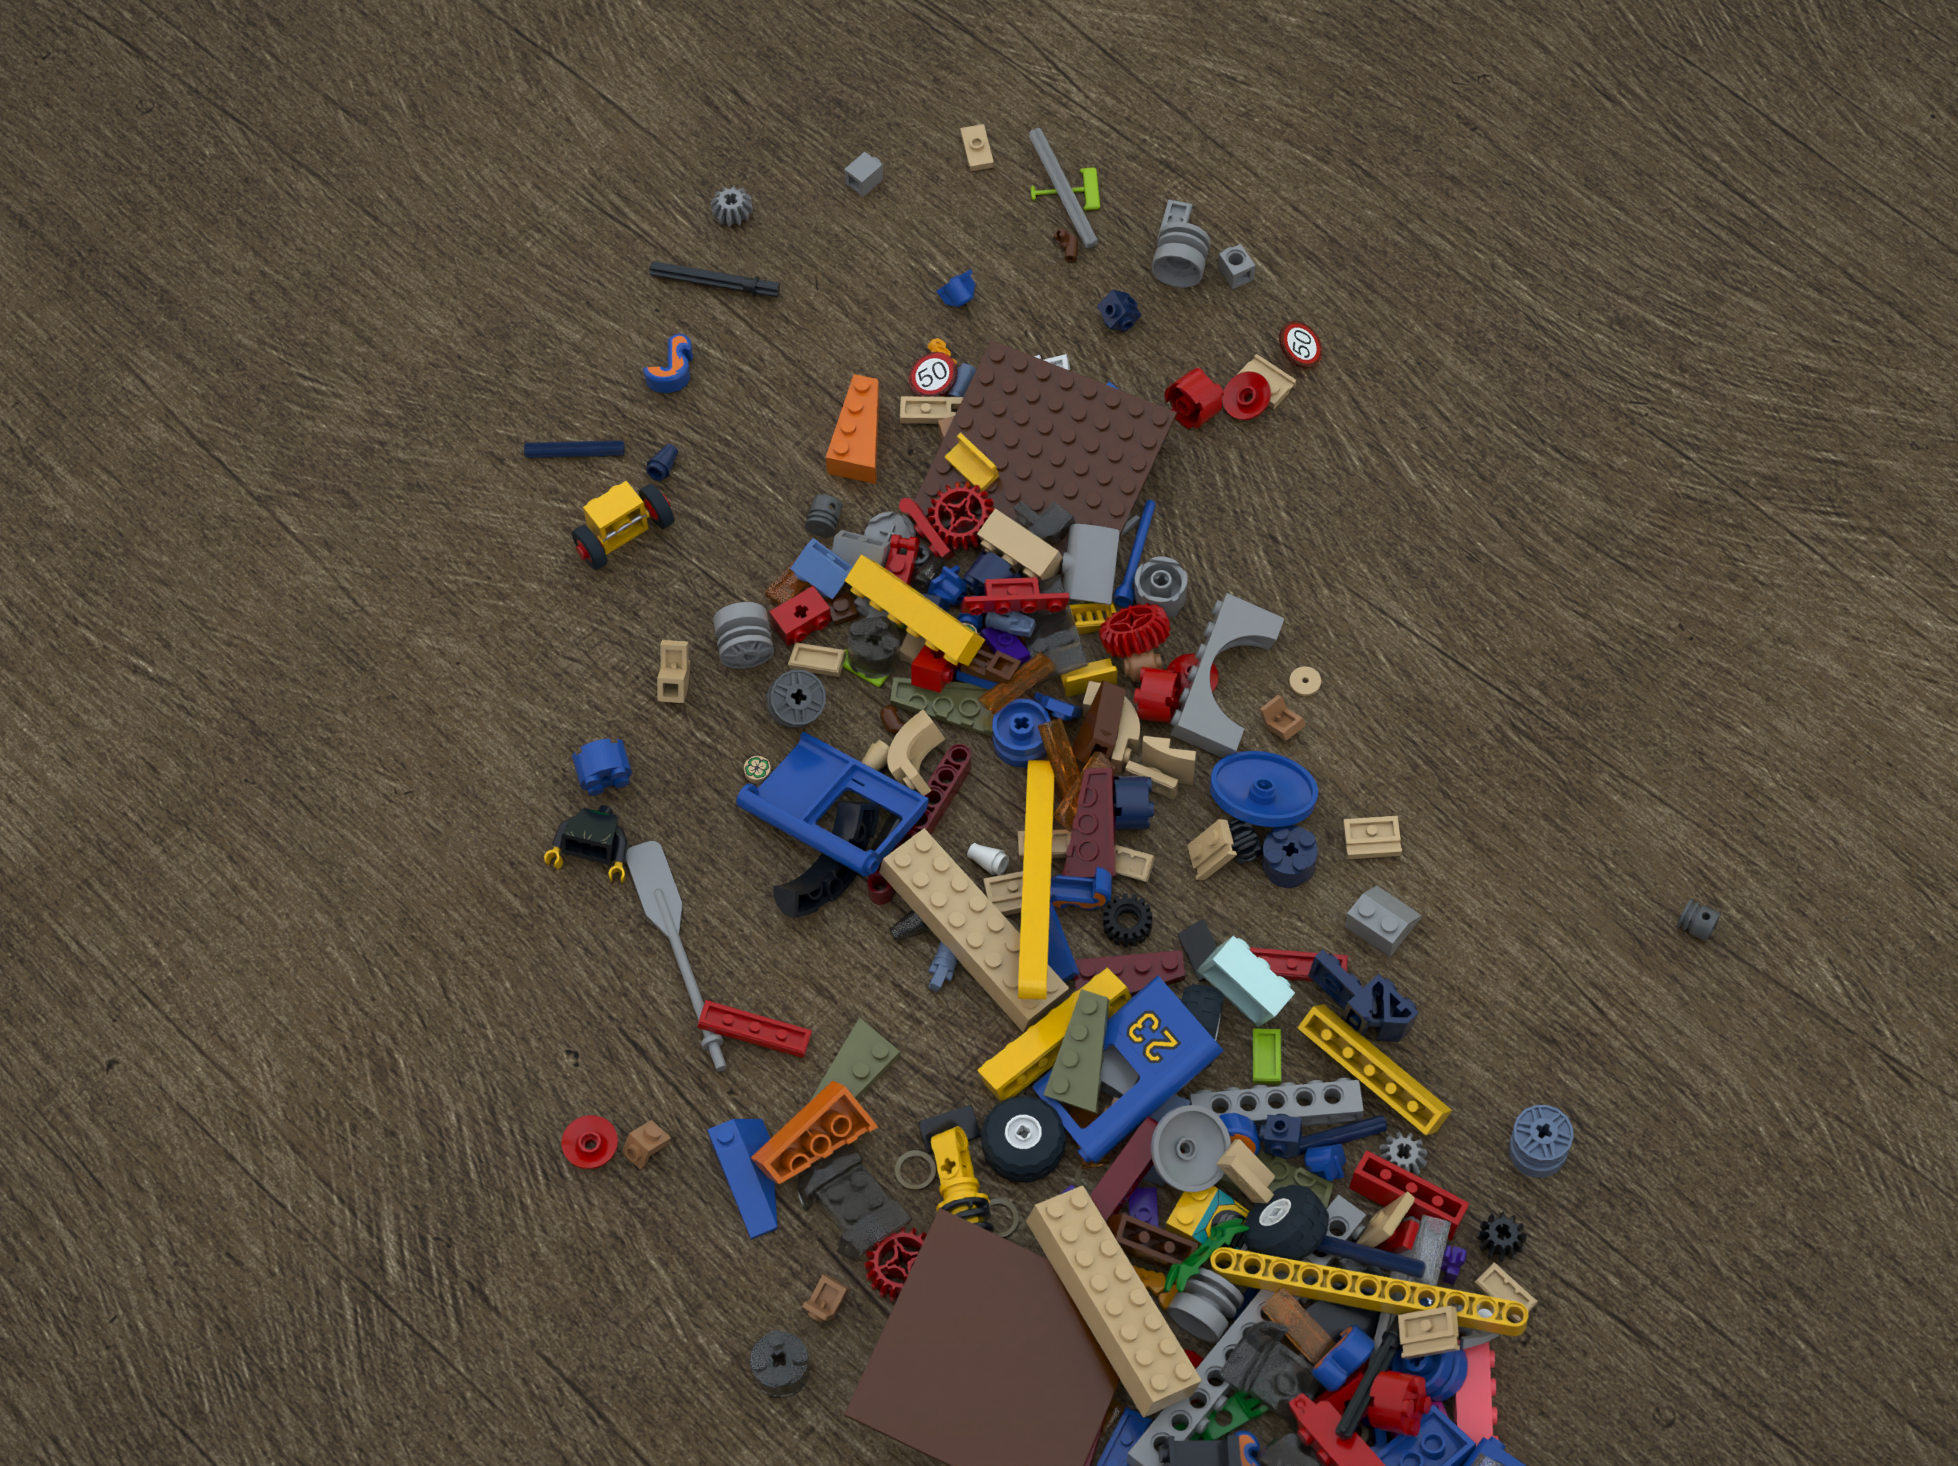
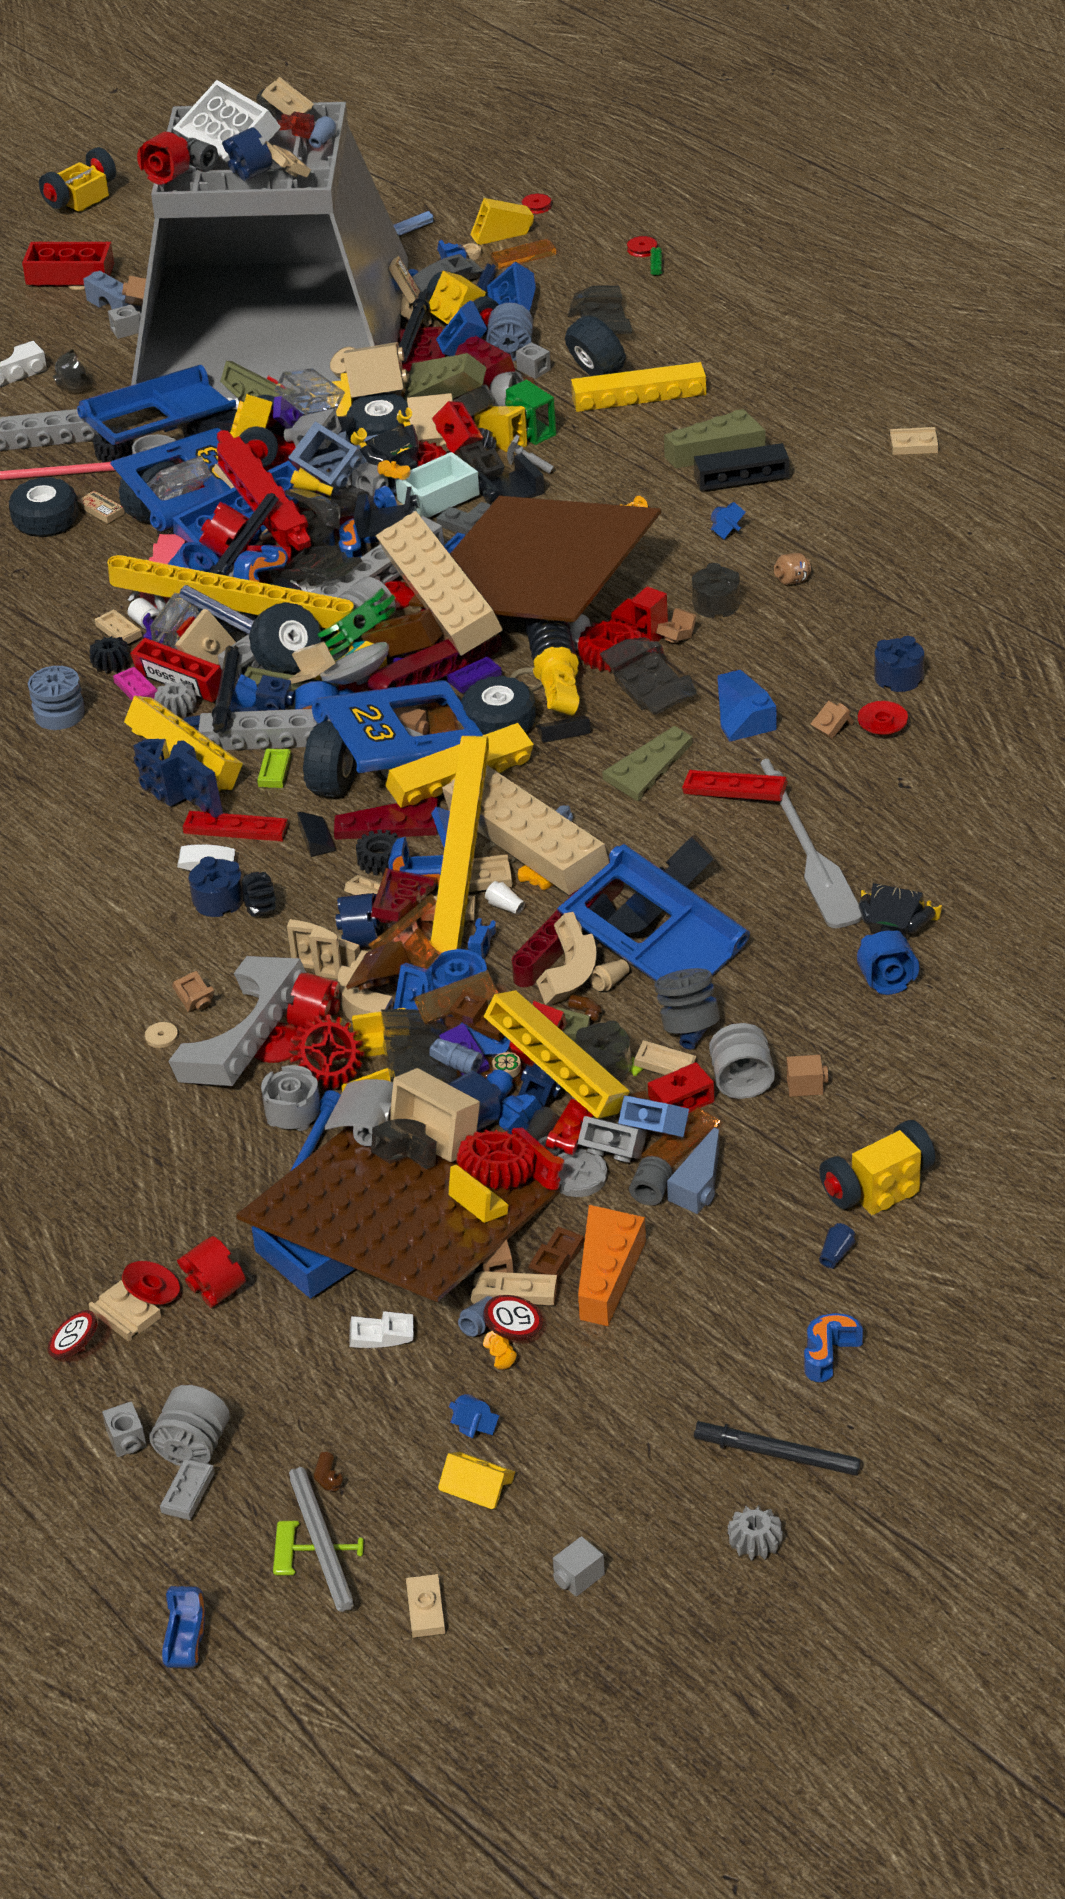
camera: 175 degrees left, 20 degrees down
(565, 1215) = (899, 664): none -> dark blue brick
(574, 448) = (942, 1268): dark blue axle -> none
(674, 671) = (817, 1038): tan brick -> none
(687, 1416) = (792, 568): none -> medium nougat head
(690, 632) = (805, 1075): none -> medium nougat brick
(757, 769) = (730, 975): tan tile -> none
(784, 522) = (695, 1179): none -> sand blue slope
(814, 1133) = (682, 702): orange wedge -> none
(863, 1303) = (644, 612): none -> red brick
(903, 449) = (558, 1253): none -> reddish brown slope
(915, 1153) = (596, 698): dark tan piece -> none
(948, 245) = (474, 1479): none -> yellow panel
(1007, 792) = (480, 940): none -> blue plate
(1013, 595) = (448, 1051): red bracket -> none
(1080, 1058) = (439, 730): olive wing -> none
(1119, 311) = (278, 1377): dark blue brick -> none
(1151, 109) = (184, 1627): none -> blue animal
(1211, 849) = (289, 885): tan plate -> none
(1246, 981) = (281, 782): light aqua piece -> none
(1263, 788) = (225, 923): blue dish -> none
(1303, 1329) = (291, 580): clear orange tile -> none
(1314, 907) = (192, 854): none -> white slope
(1336, 1103) = (221, 712): none -> black axle
(1372, 837) = (133, 905): tan plate -> none
(1381, 920) = (142, 846): light grey slope -> none
(1429, 1332) = (188, 555): tan plate -> none
(1455, 1180) = (134, 683): none -> dark pink plate

